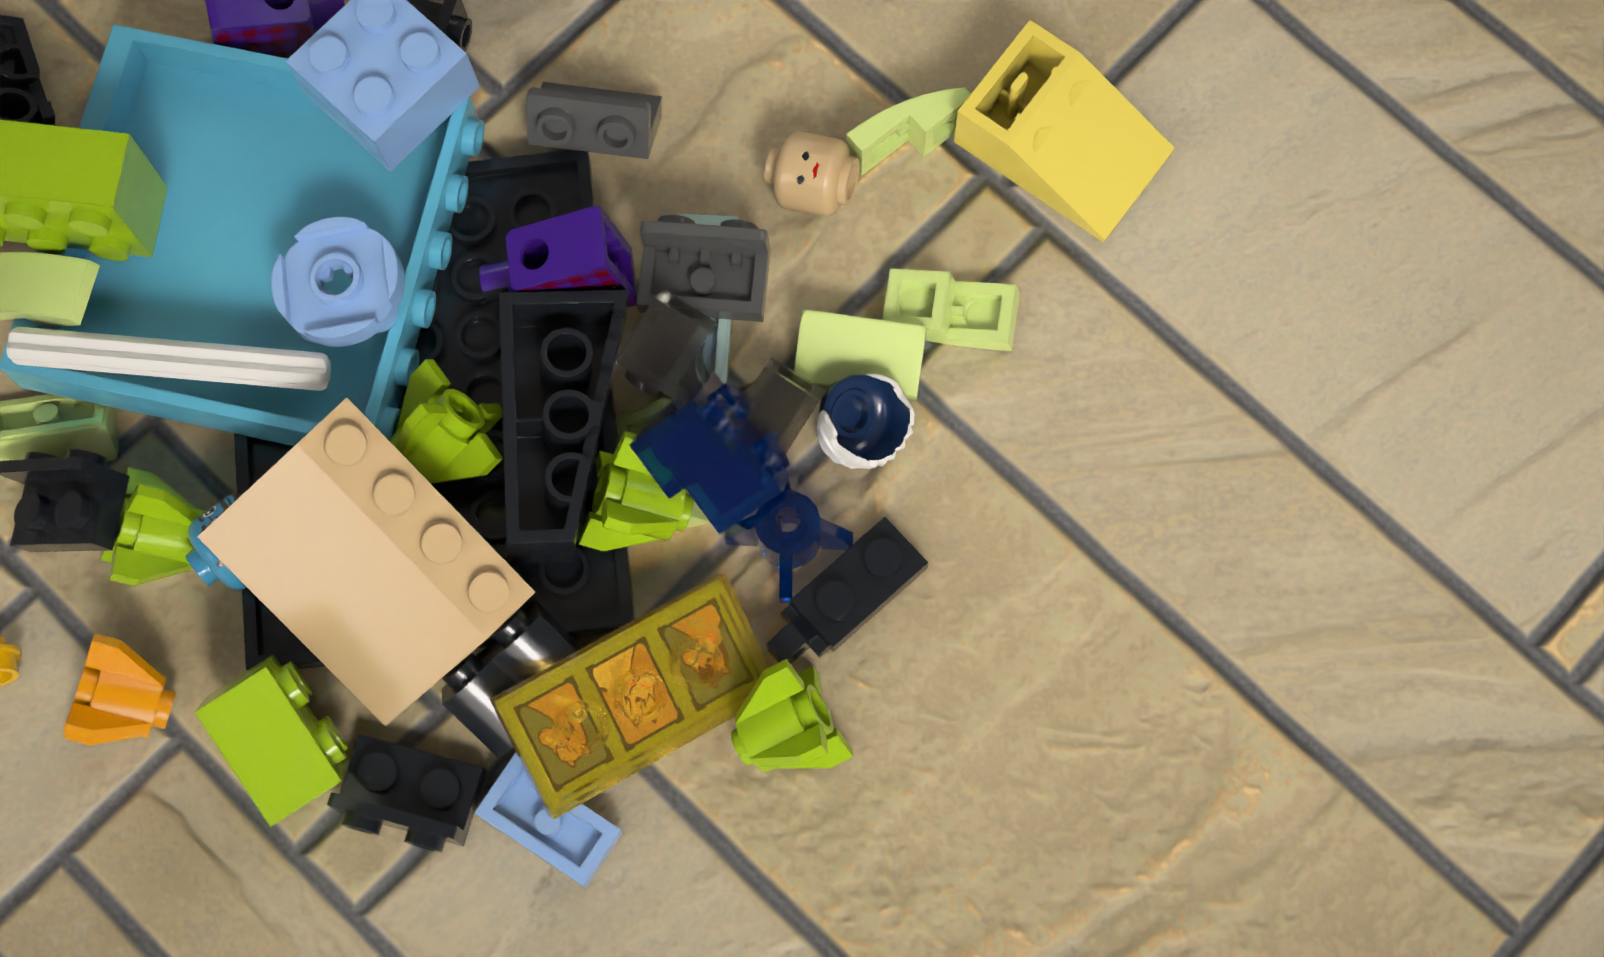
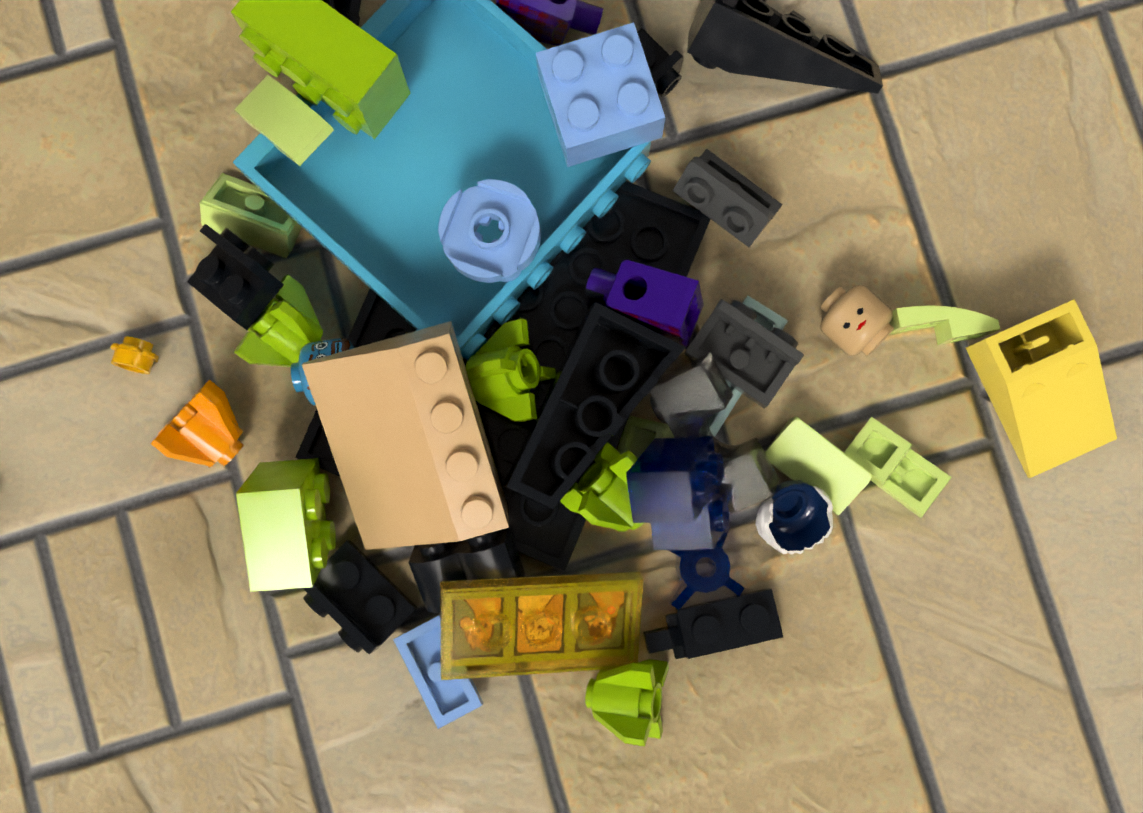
camera: 25 degrees right, 10 degrees up
(169, 358) = (348, 221): white axle -> none

